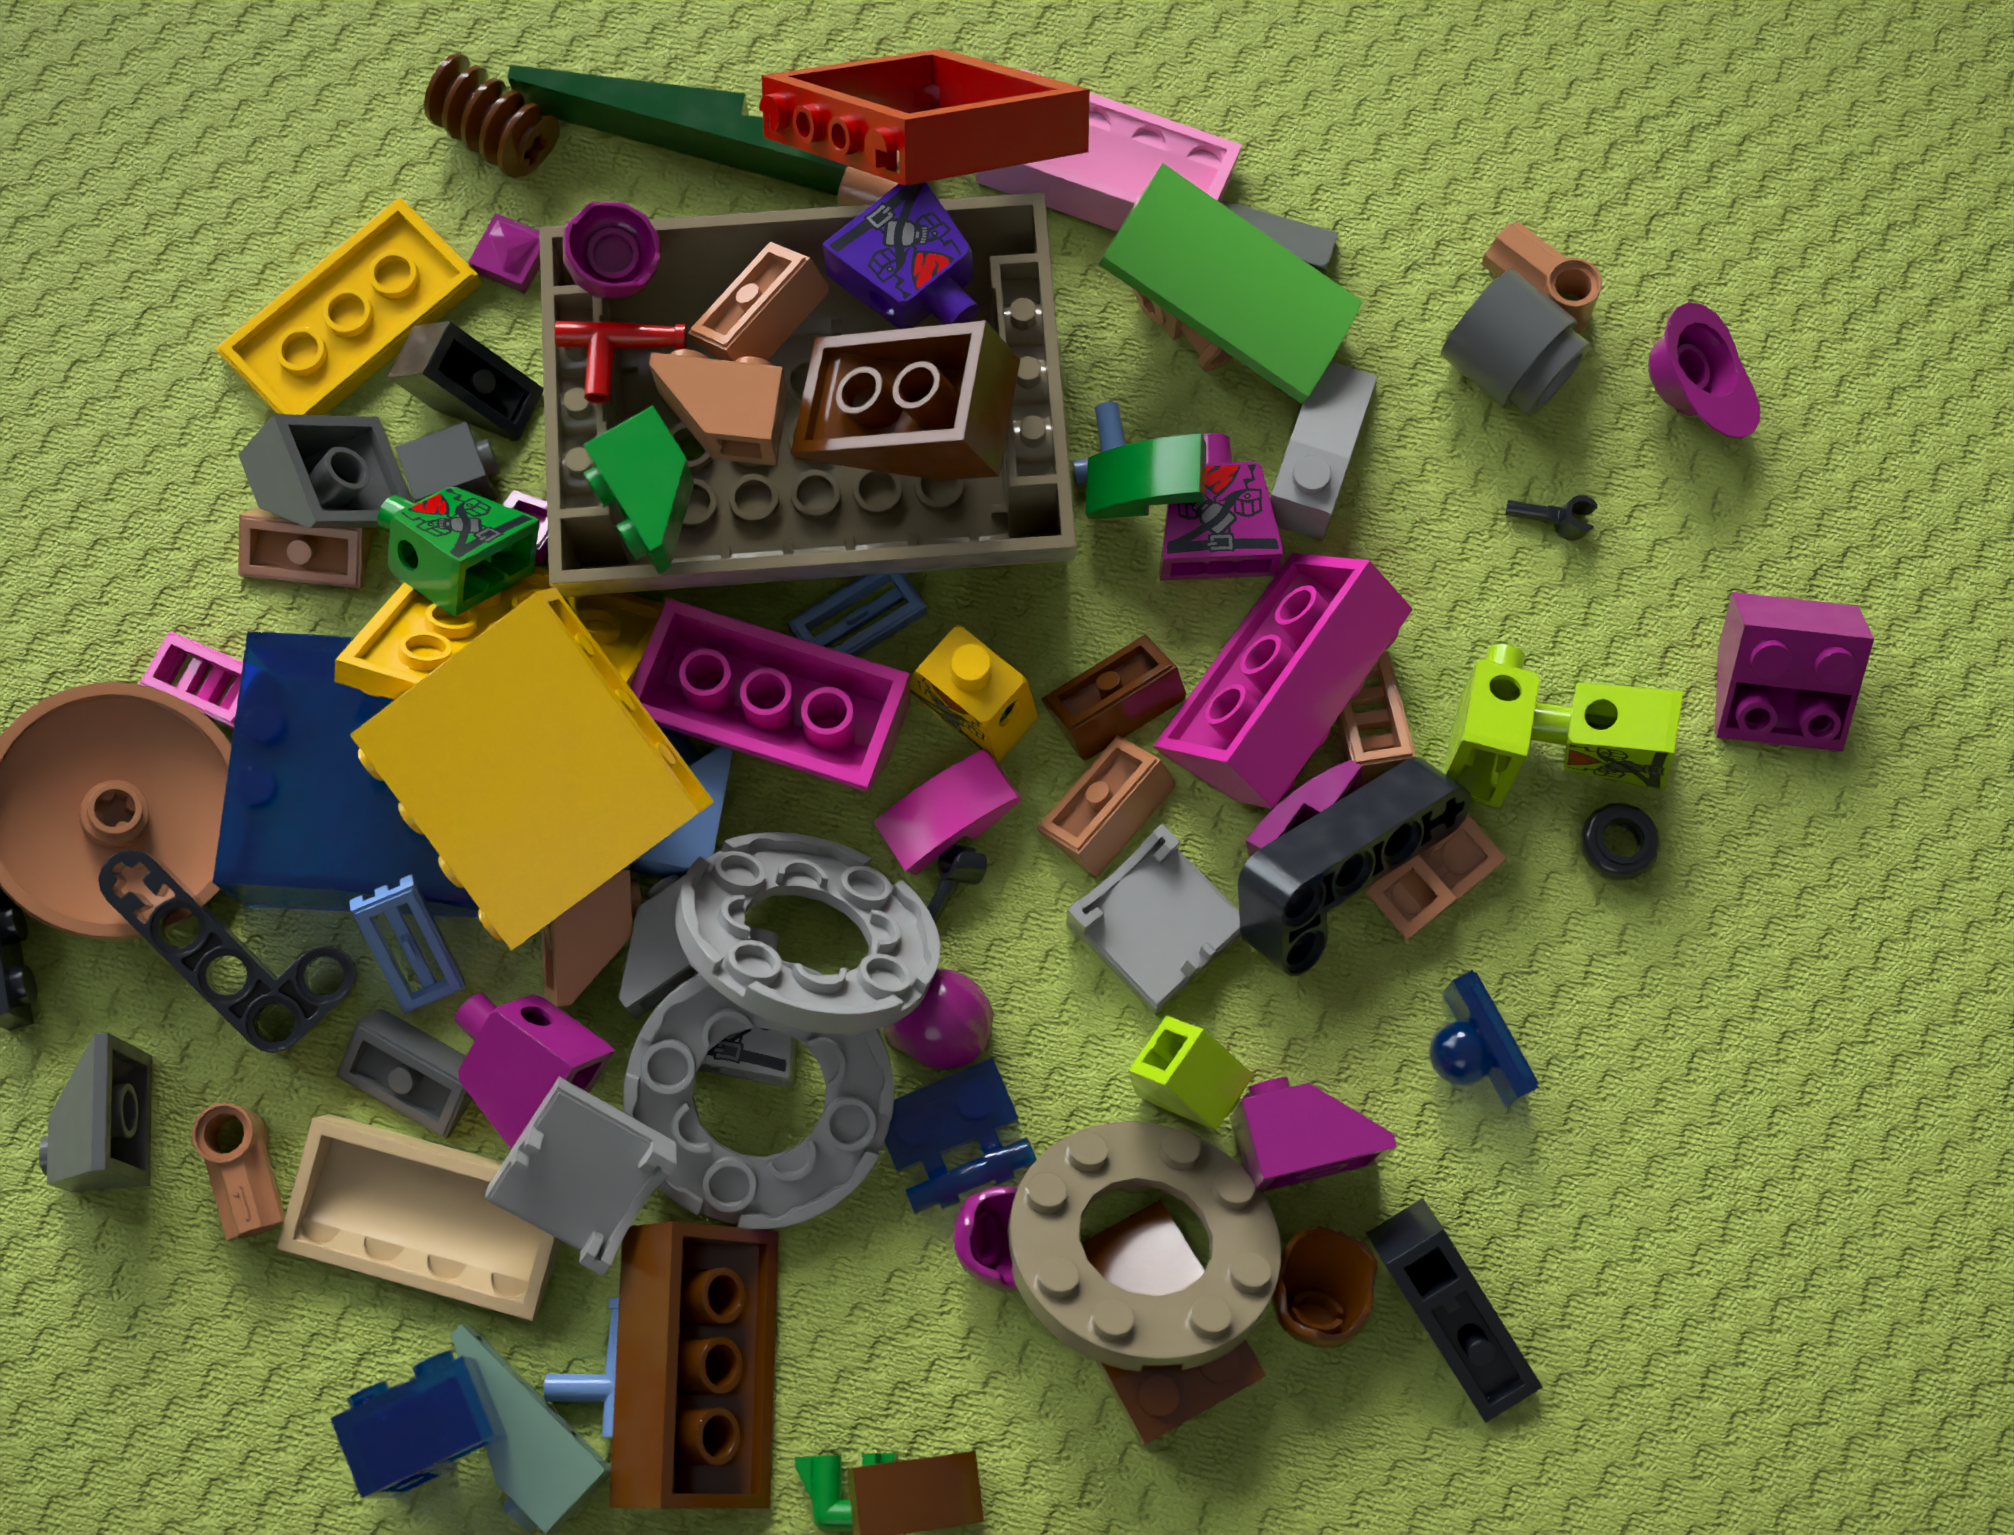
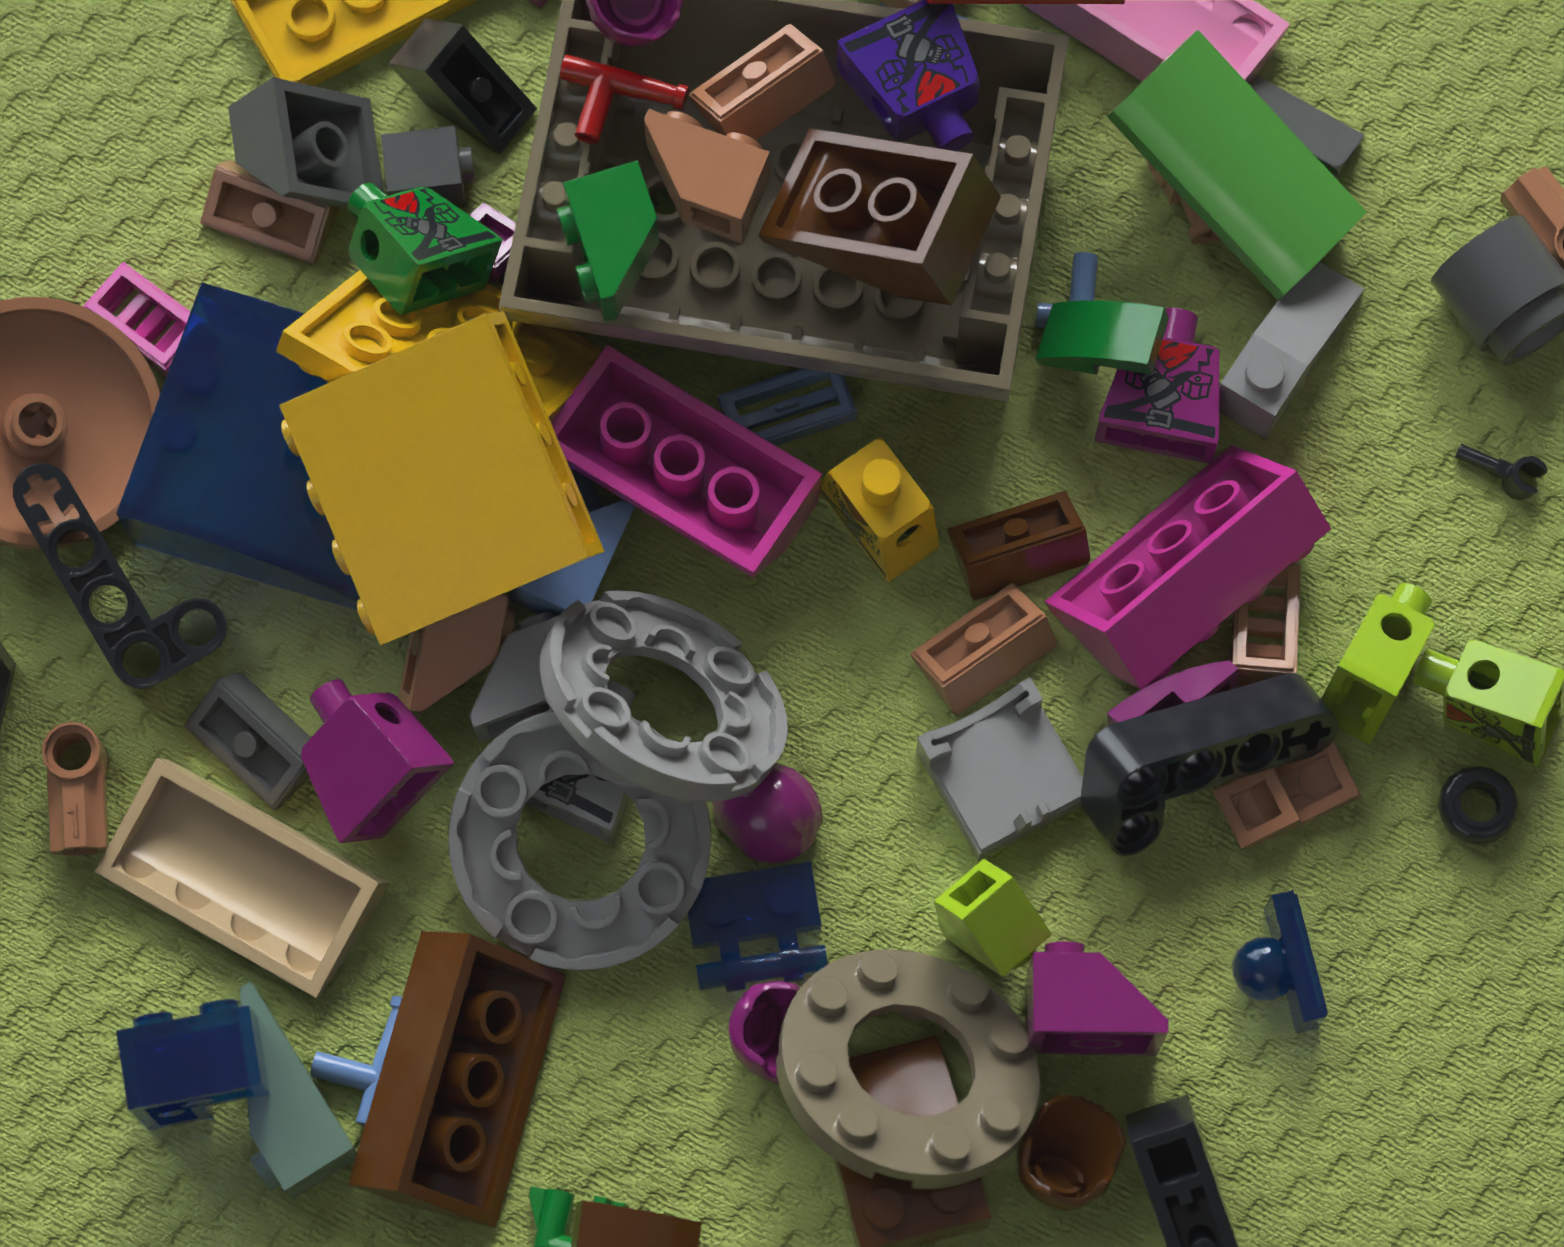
camera: 15 degrees right, 0 degrees up
(388, 902) = (274, 571): medium blue tile -> none
(582, 1172) = (397, 868): light grey piece -> none
(945, 808) = (827, 612): dark pink slope -> none
(956, 866) = (820, 670): black hand -> none

